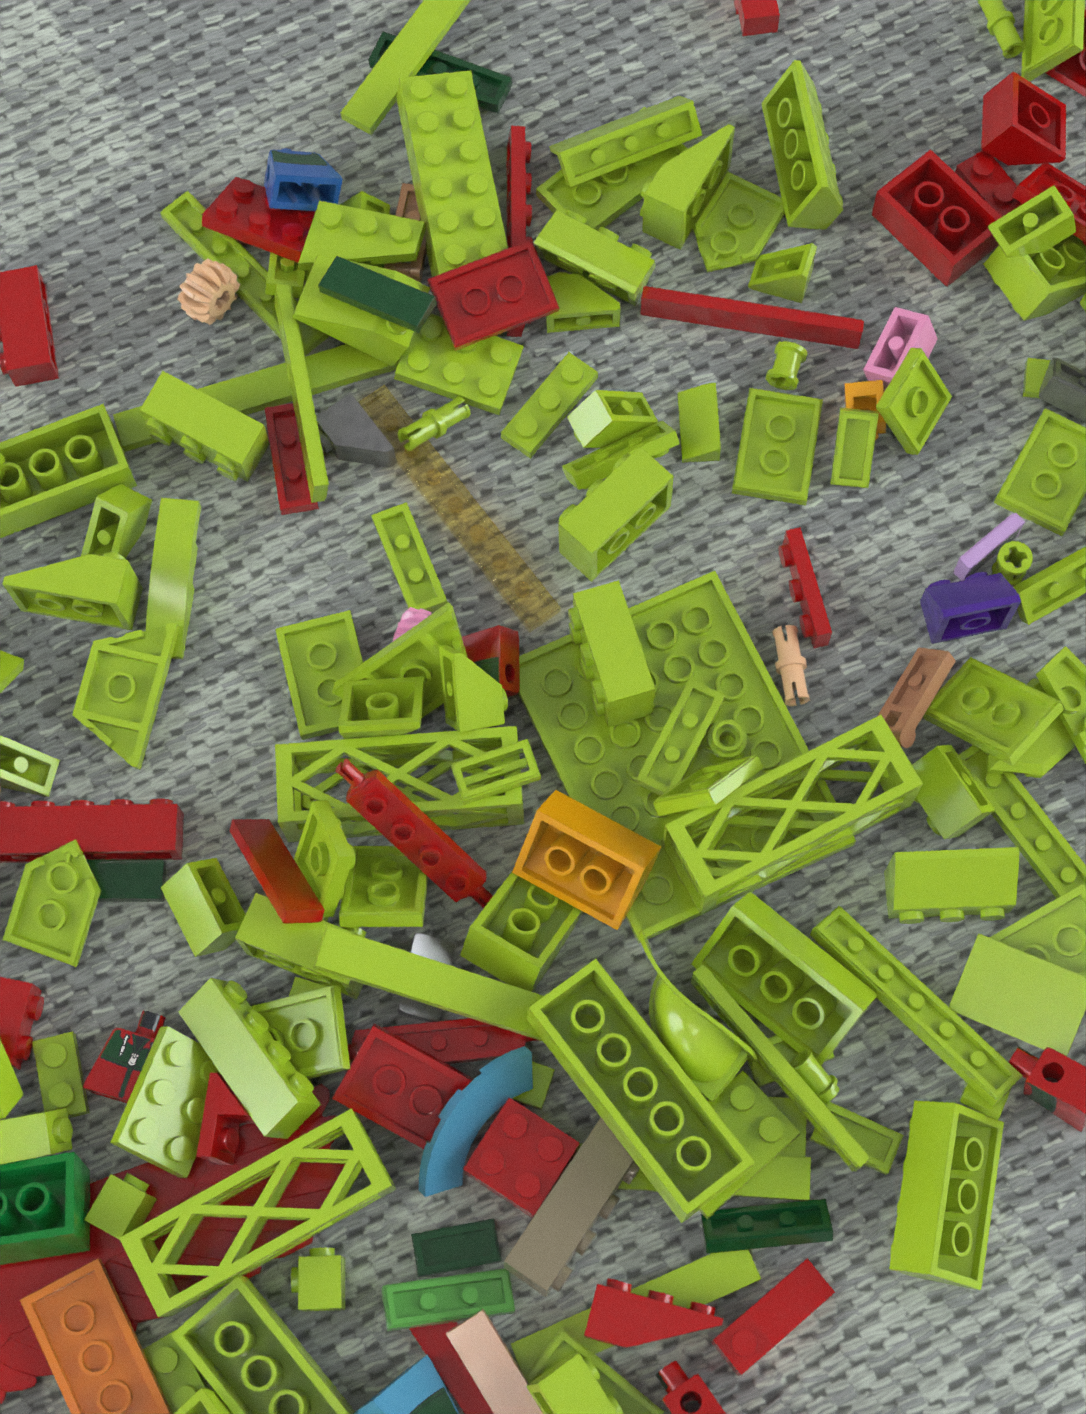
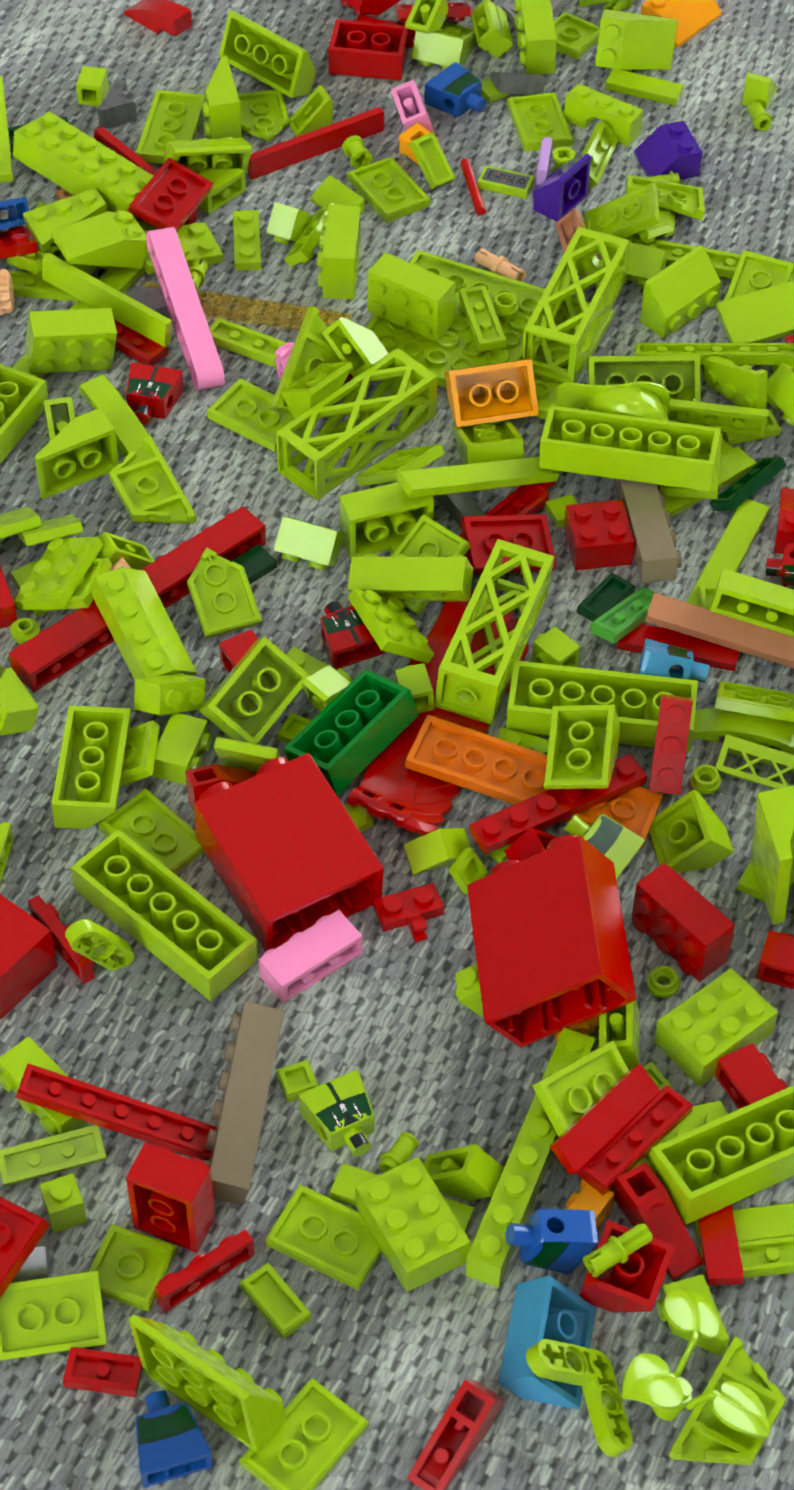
camera: 45 degrees left, 20 degrees down
(221, 1122) = (427, 608): red slope -> none
(243, 556) = (153, 390): none -> red torso
(276, 871) = (335, 490): red tile -> none
(325, 855) = (360, 456): lime plate -> none
(364, 471) = (185, 308): none -> bright pink beam
(377, 294) = (111, 221): dark green tile -> none
(414, 834) = (392, 421): red plate -> none
(466, 1114) = (551, 528): dark azure tile -> none
(500, 786) = (414, 370): lime tile -> none
(575, 101) = (117, 107): none -> flat silver slope
(582, 49) = (92, 85): none -> lime brick
(627, 140) = (167, 102): lime panel -> none
(635, 1320) = (733, 549): red slope -> none
(708, 785) = (522, 313): lime tile -> none
(805, 588) = (472, 230): red plate -> none
(877, 515) = (473, 187): none -> red bar
(880, 1112) = (737, 383): none -> lime wing
(914, 401) = (442, 124): lime tile -> none
(923, 537) = (506, 182): none -> tile
(988, 354) = (455, 91): none -> blue torso

